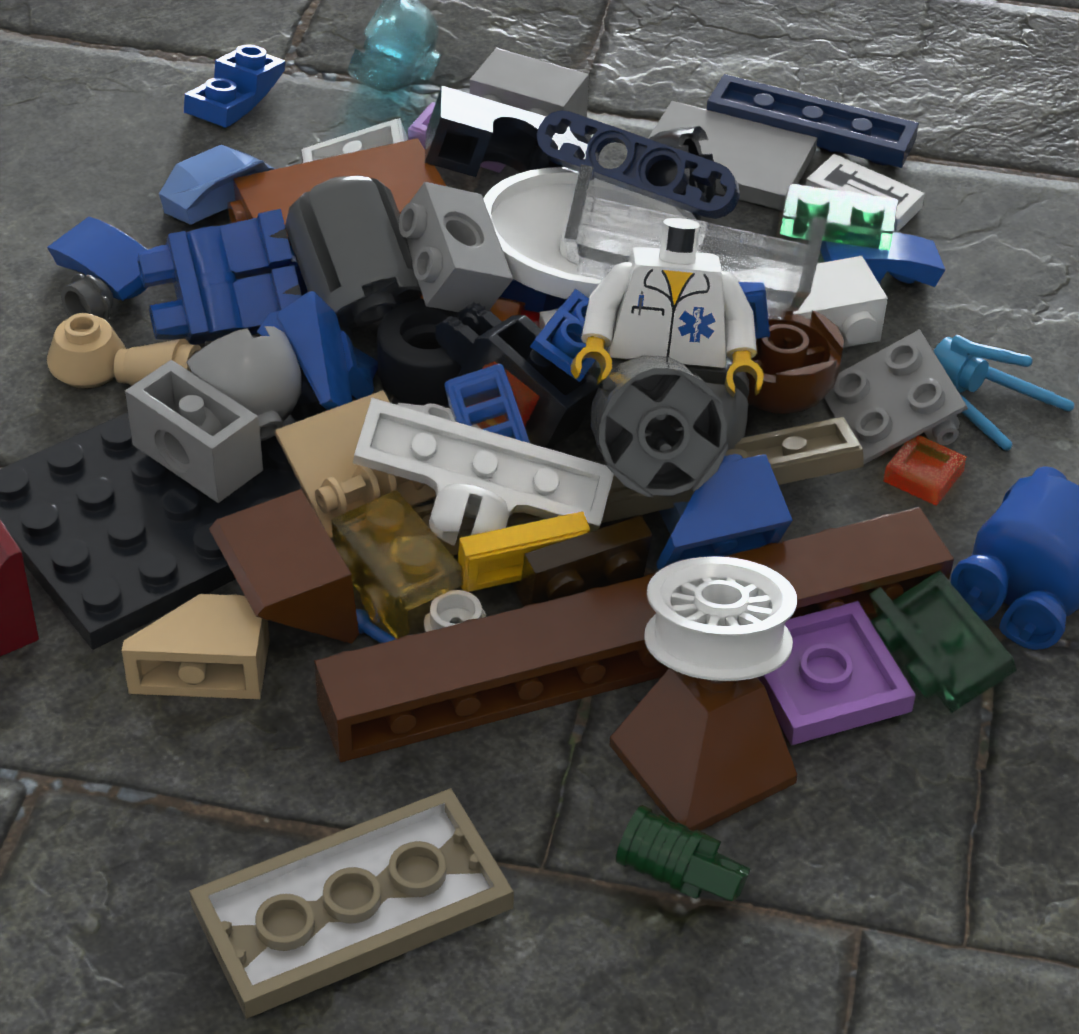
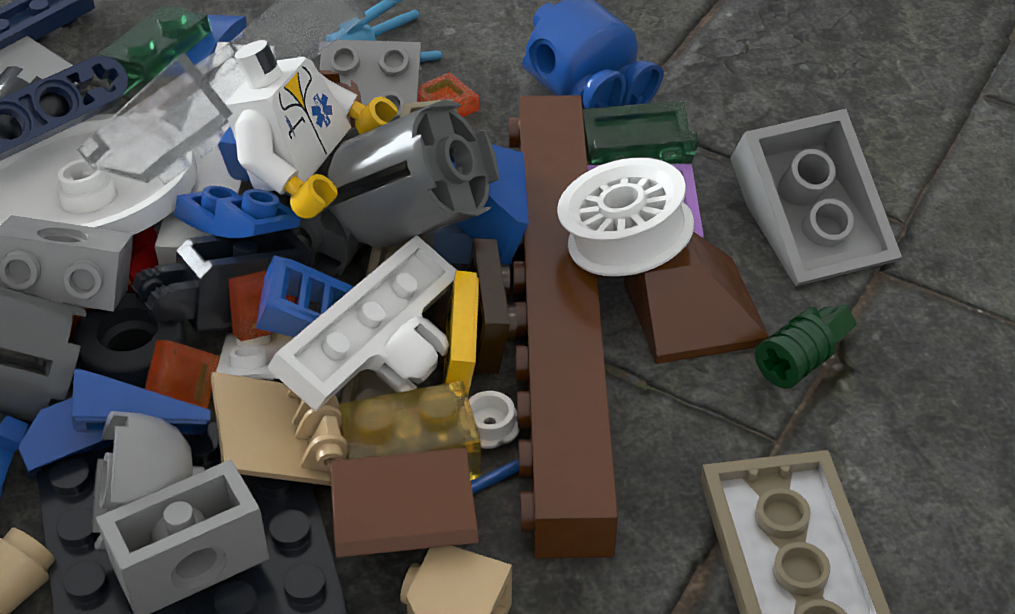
camera: 70 degrees left, 0 degrees up
(402, 380) = (182, 372): none -> tile
(851, 177) = (95, 35): white tile -> none
(922, 824) = (814, 197): none -> light grey slope

